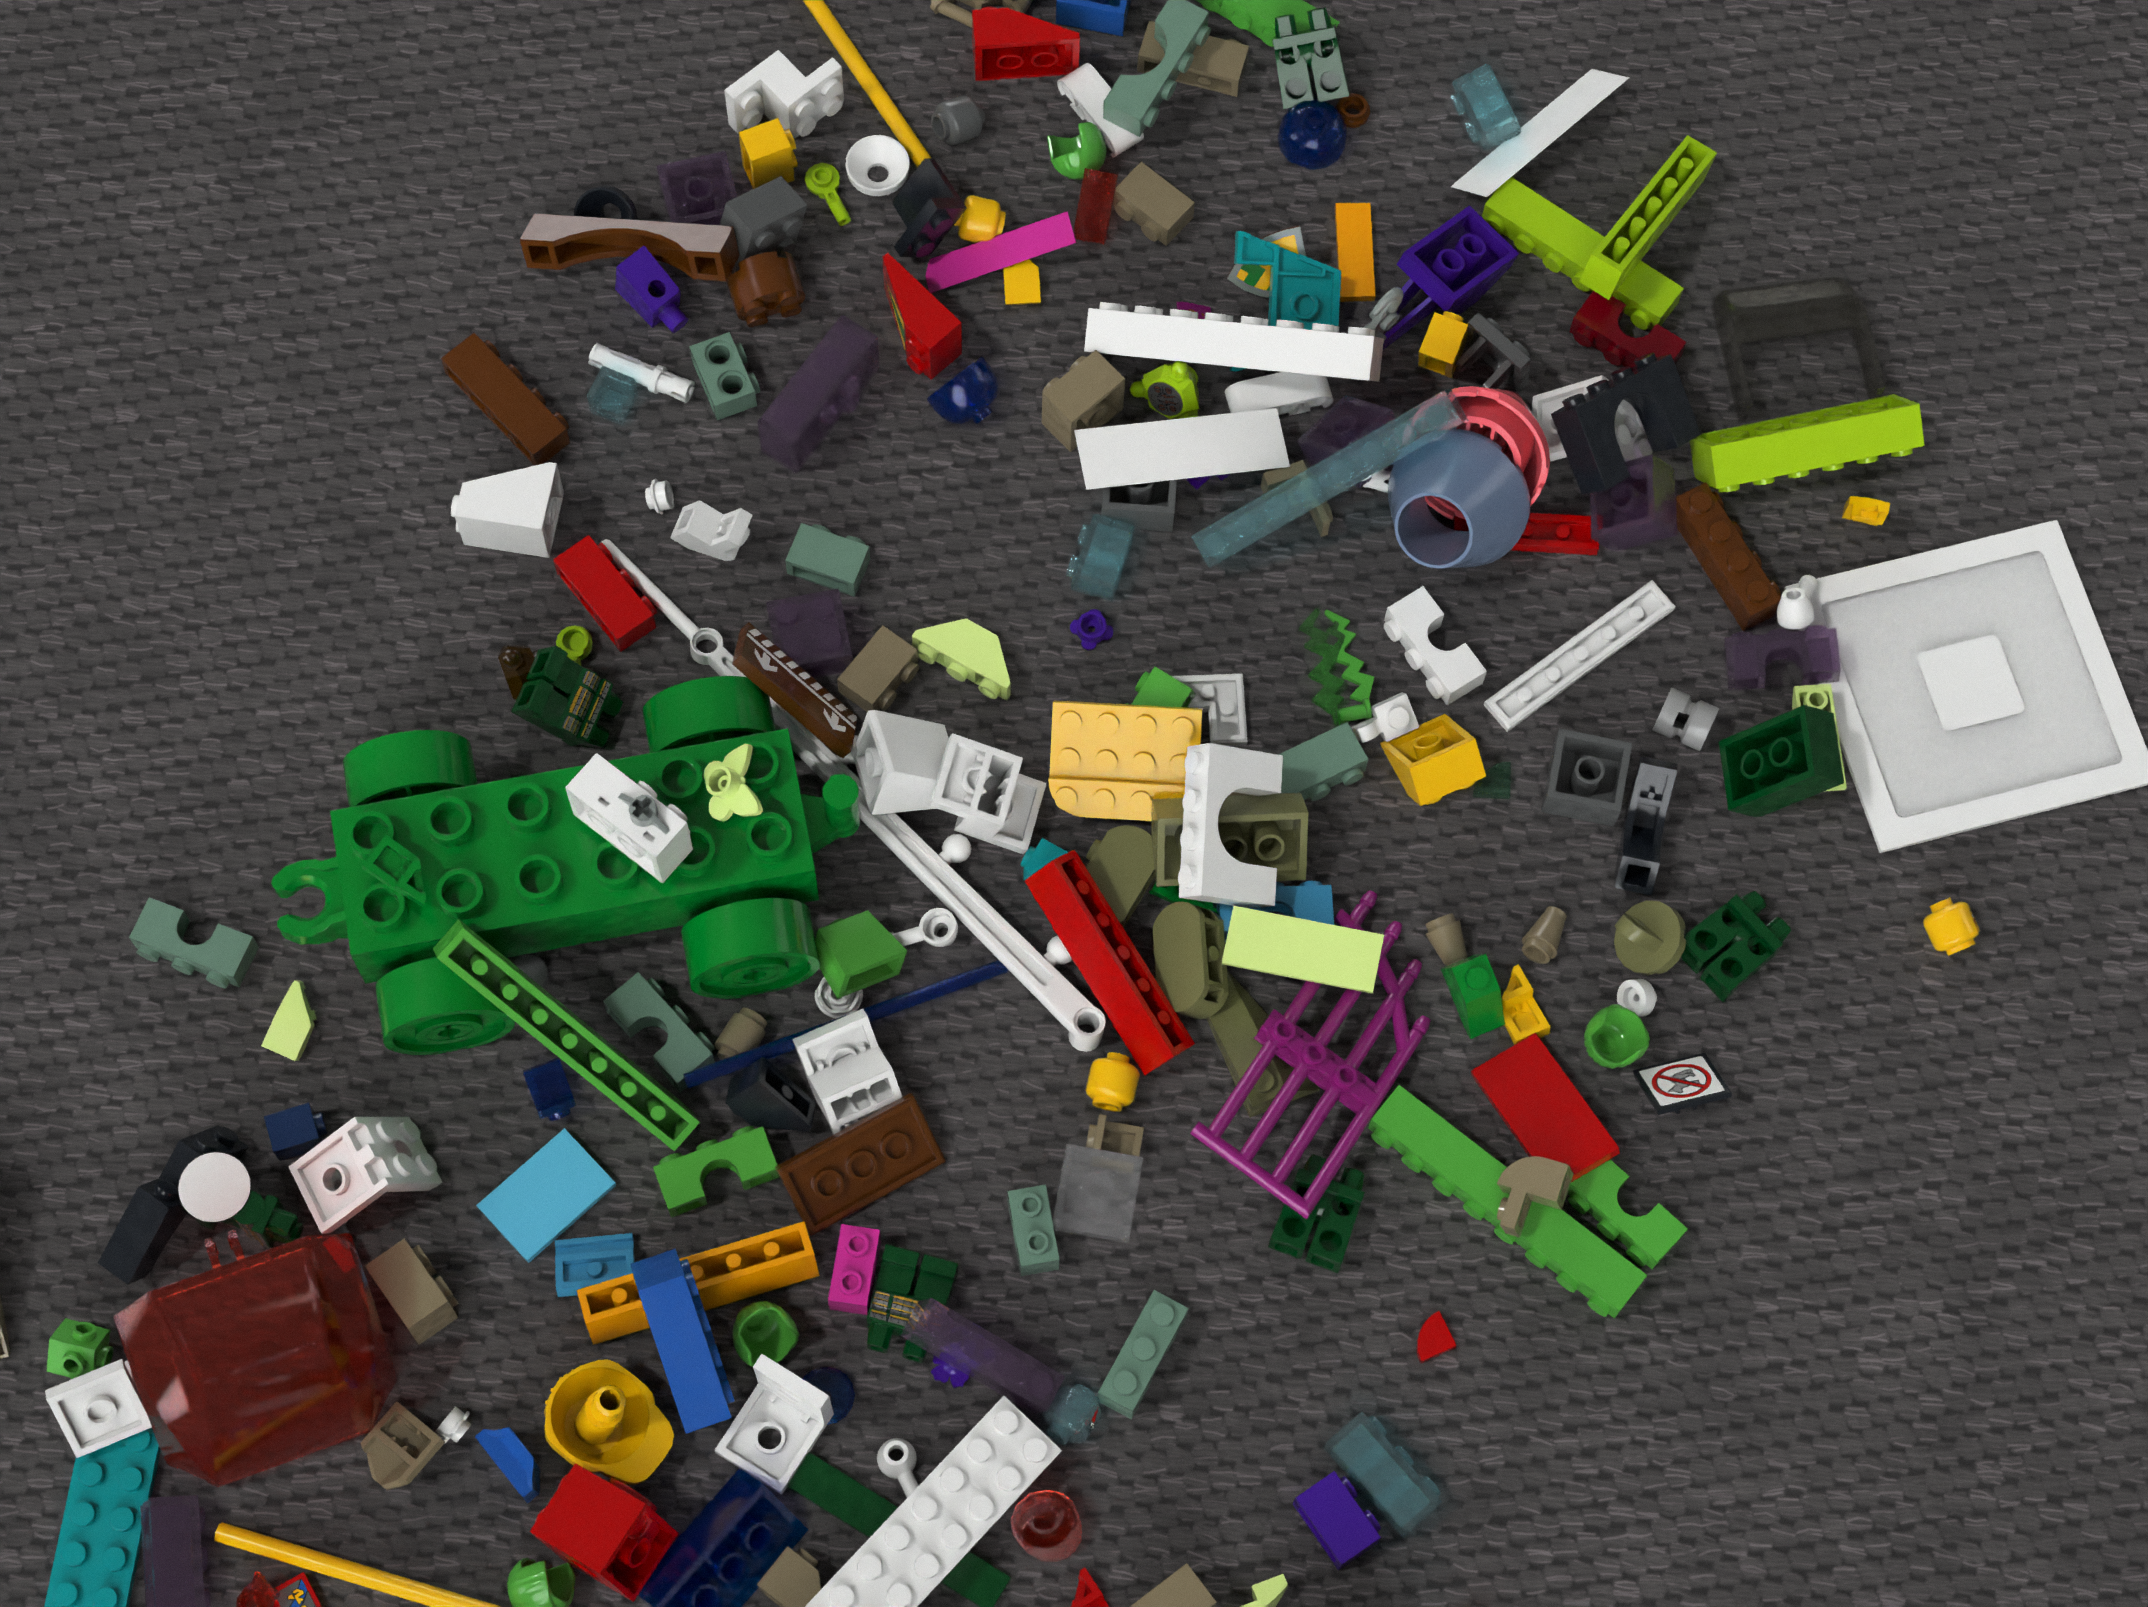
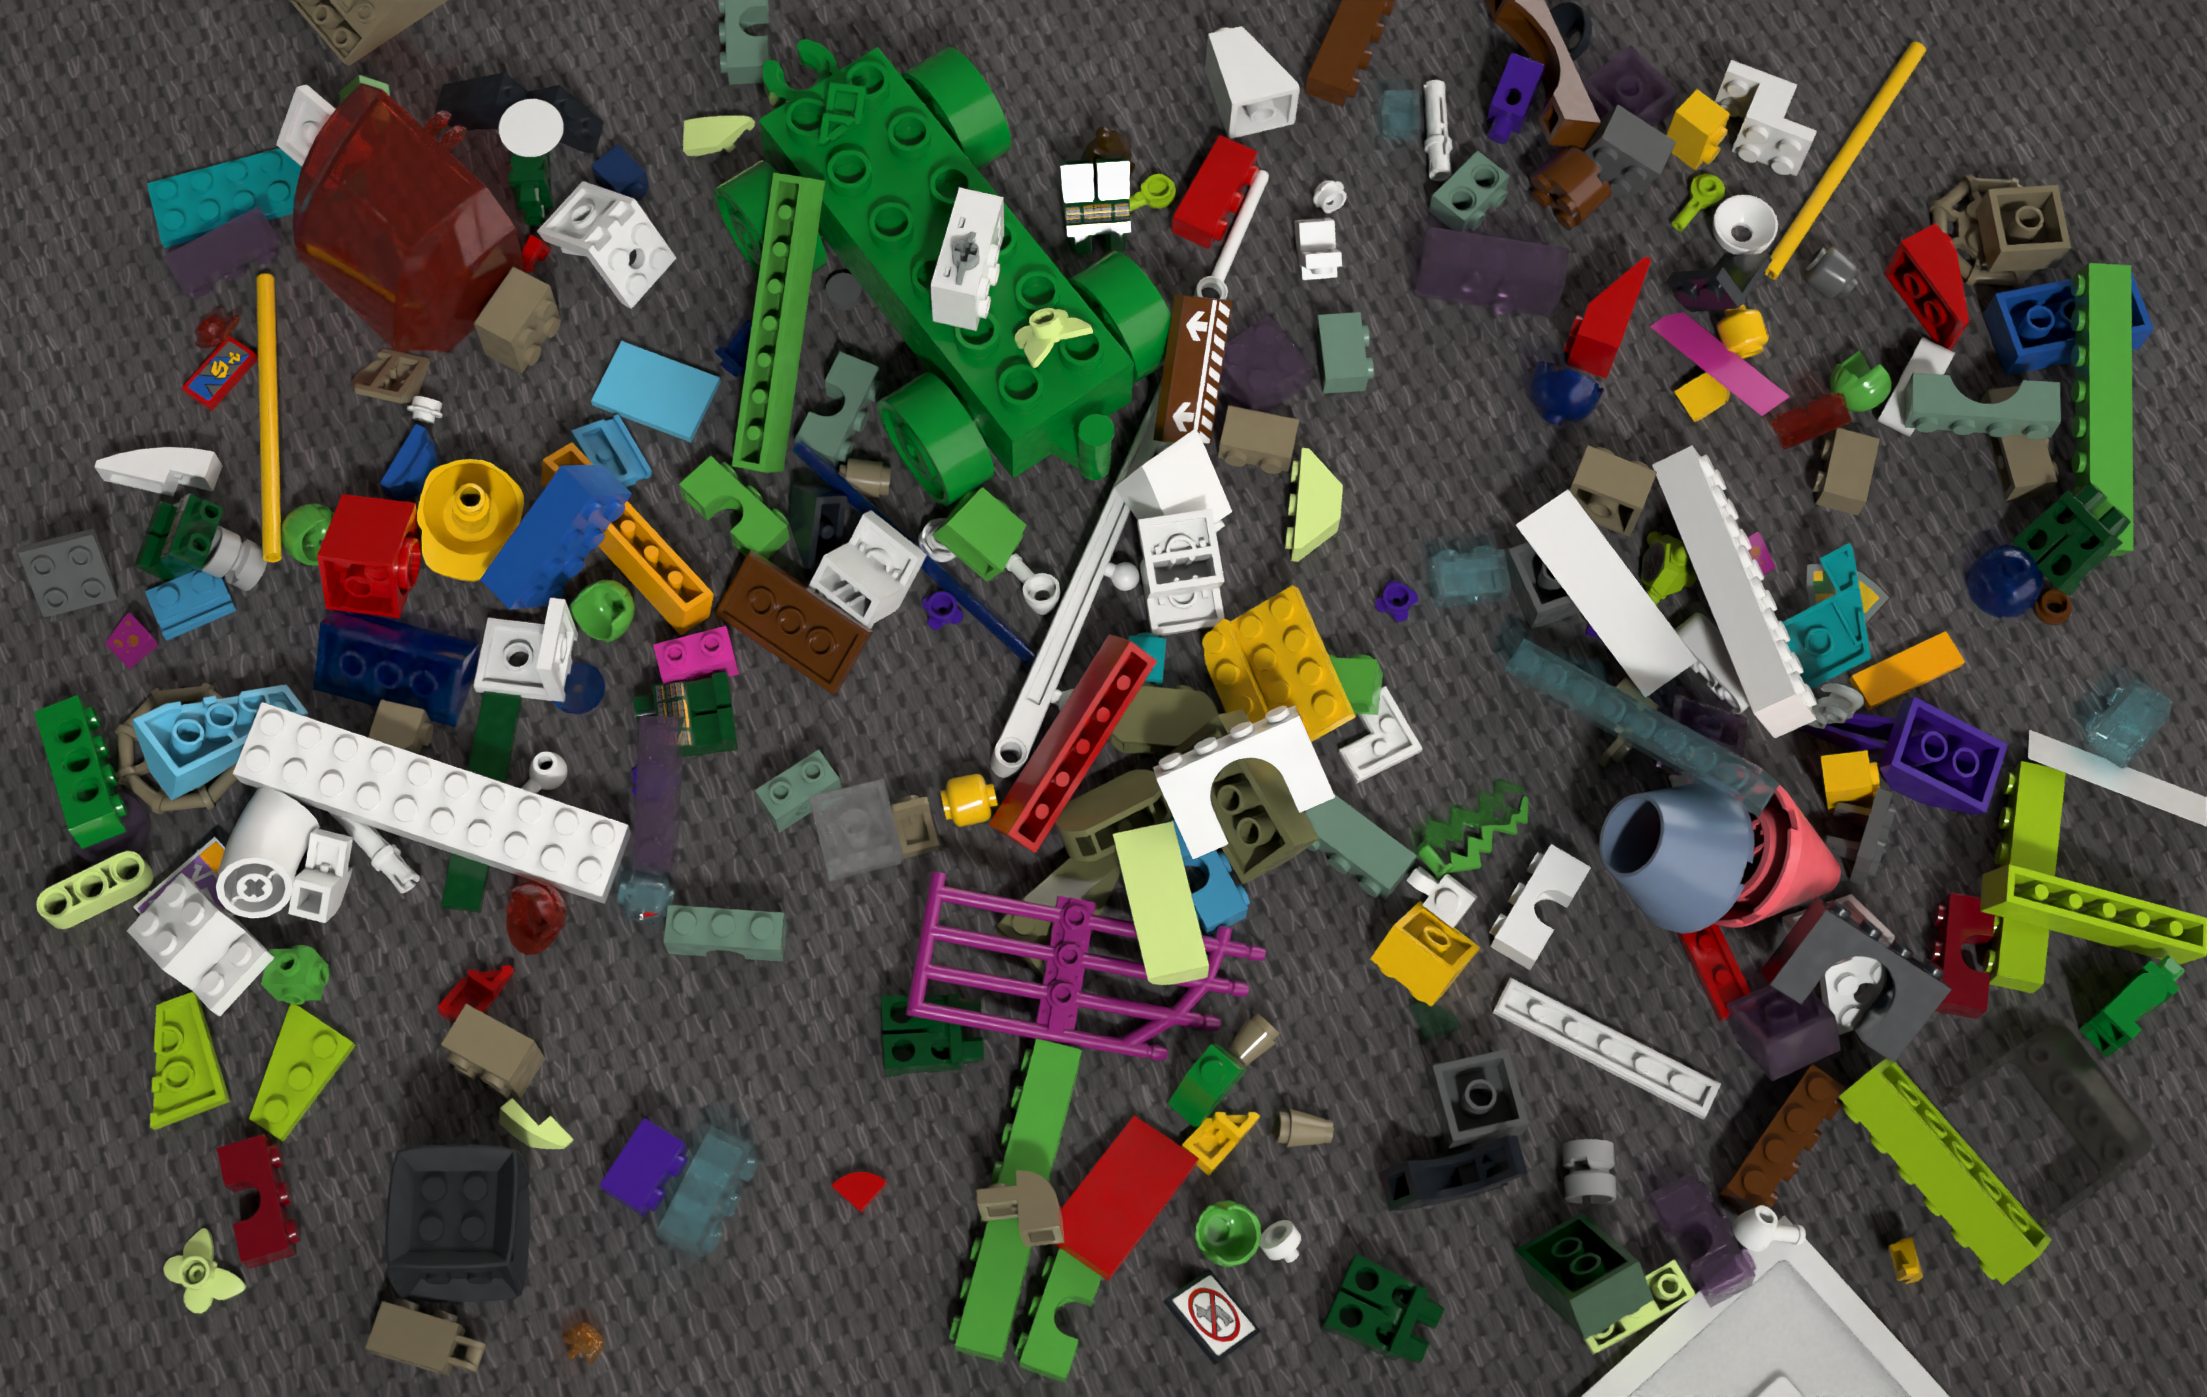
camera: 65 degrees right, 0 degrees up
(915, 1035) = (936, 618): none -> dark purple plate
(1650, 938) = (1344, 1224): olive tile -> none
(1728, 232) = (2140, 994): none -> green hips

